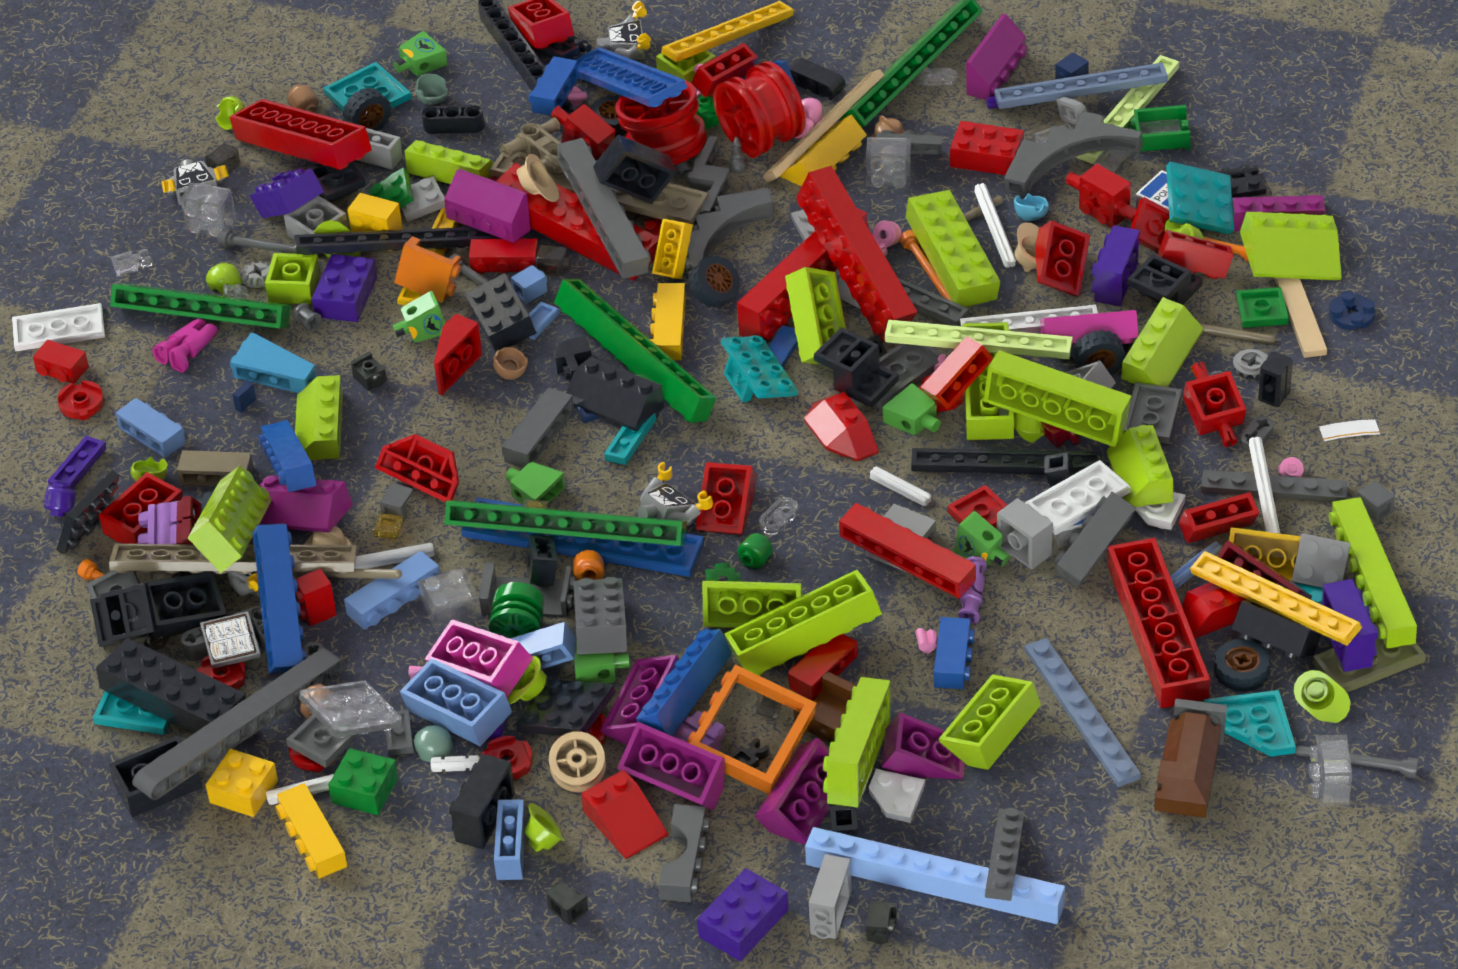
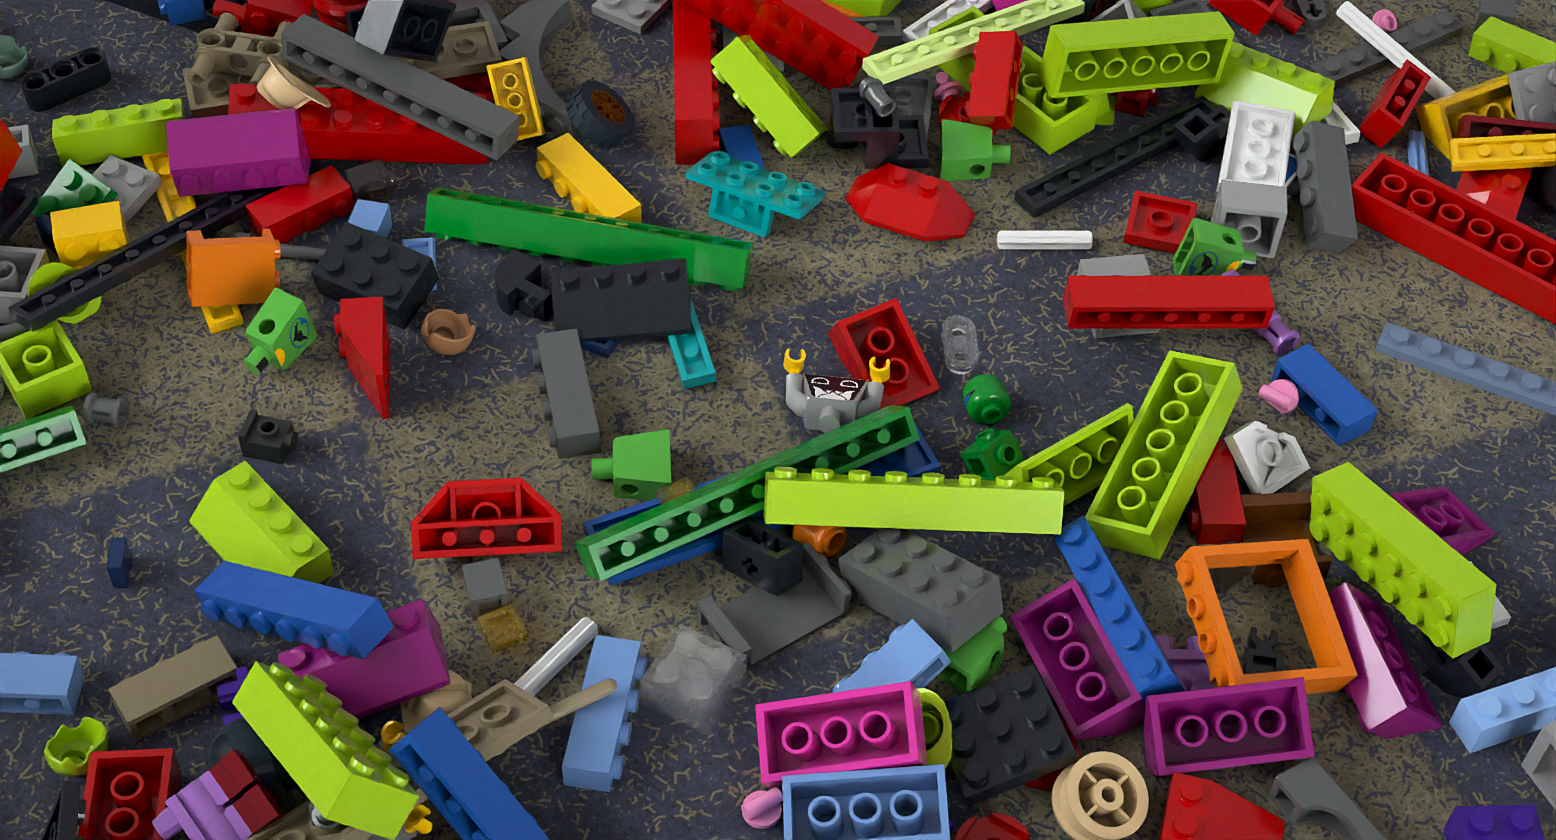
camera: 45 degrees left, 5 degrees up
(271, 365) = (120, 499): dark azure slope -> none
(315, 597) = (526, 776): red brick -> none
(344, 287) = (126, 346): dark purple brick -> none
(516, 610) = (811, 646): green wheel -> none
(633, 571) = (913, 502): none -> lime brick
(856, 340) = (872, 90): none -> dark grey pin
(870, 660) = (1266, 457): none -> white plate
(991, 720) = (1461, 447): lime slope -> none

